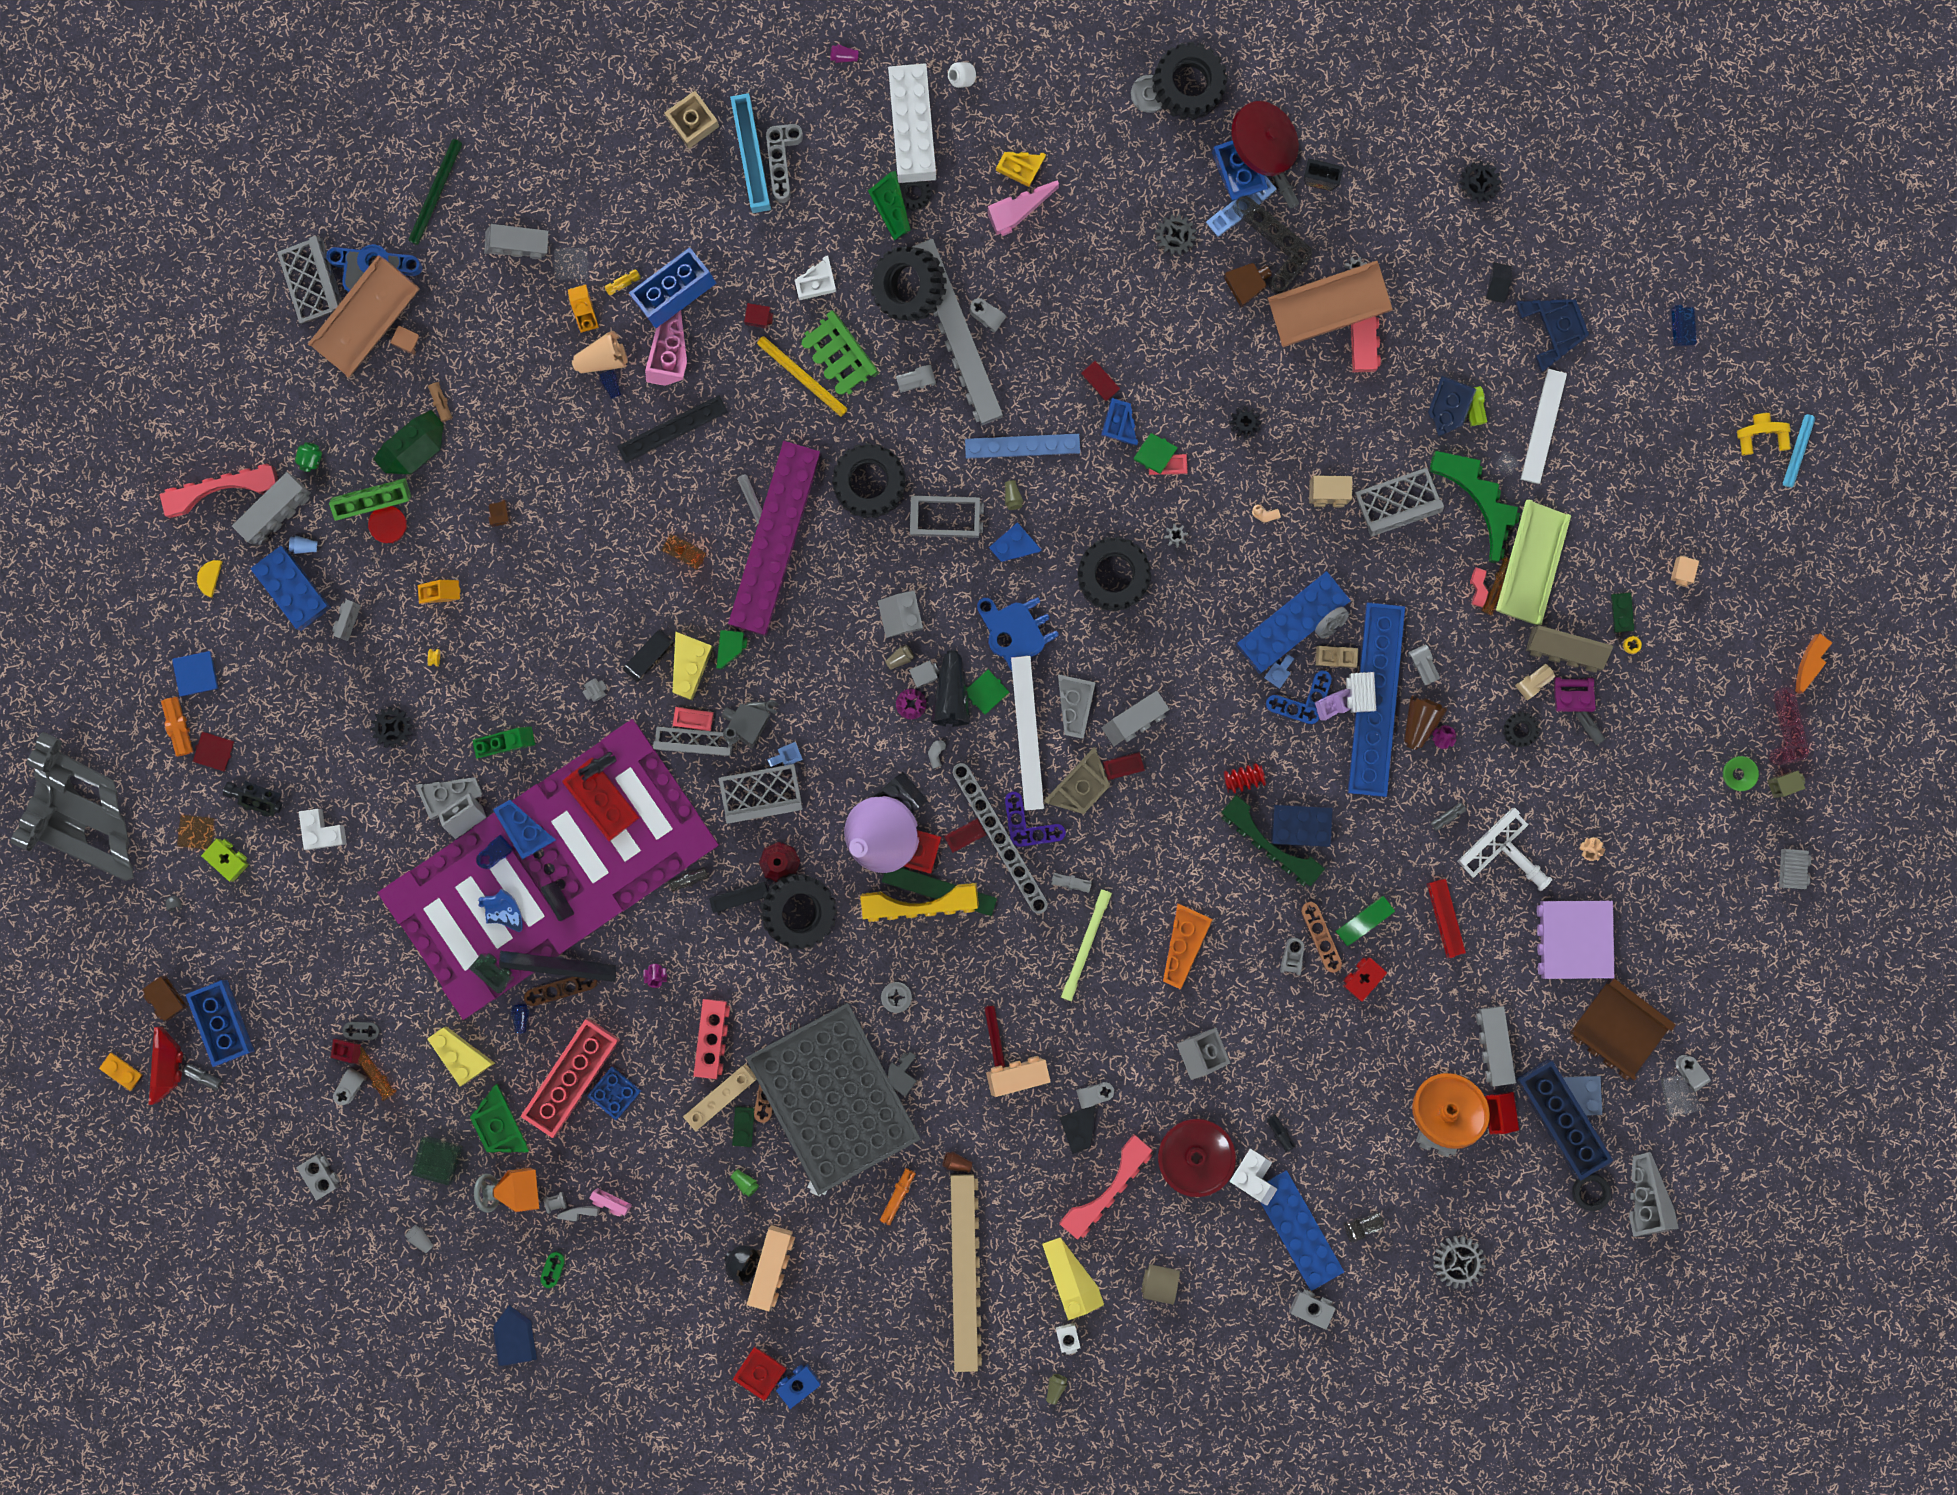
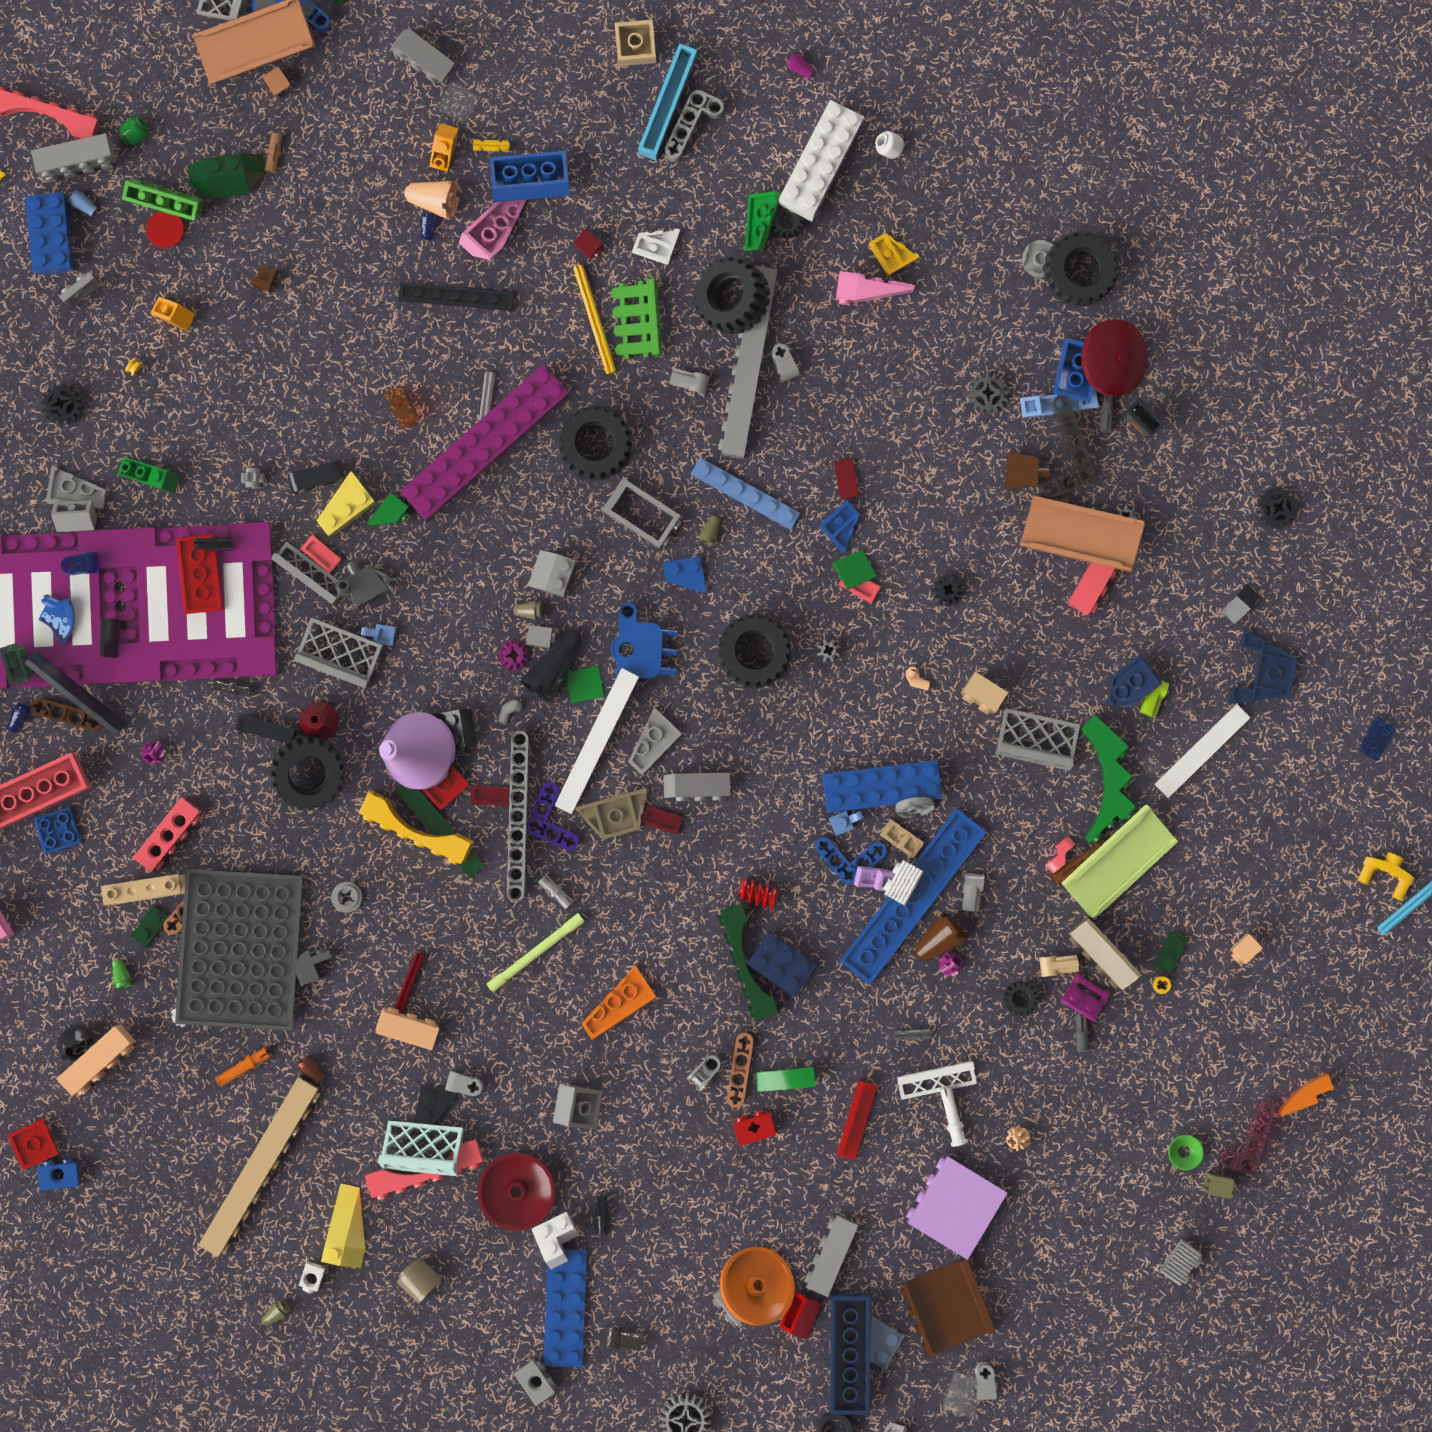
camera: 30 degrees right, 0 degrees up
(522, 830) = (116, 559): blue wing -> none
(1098, 1186) = (416, 1163): none -> light aqua fence

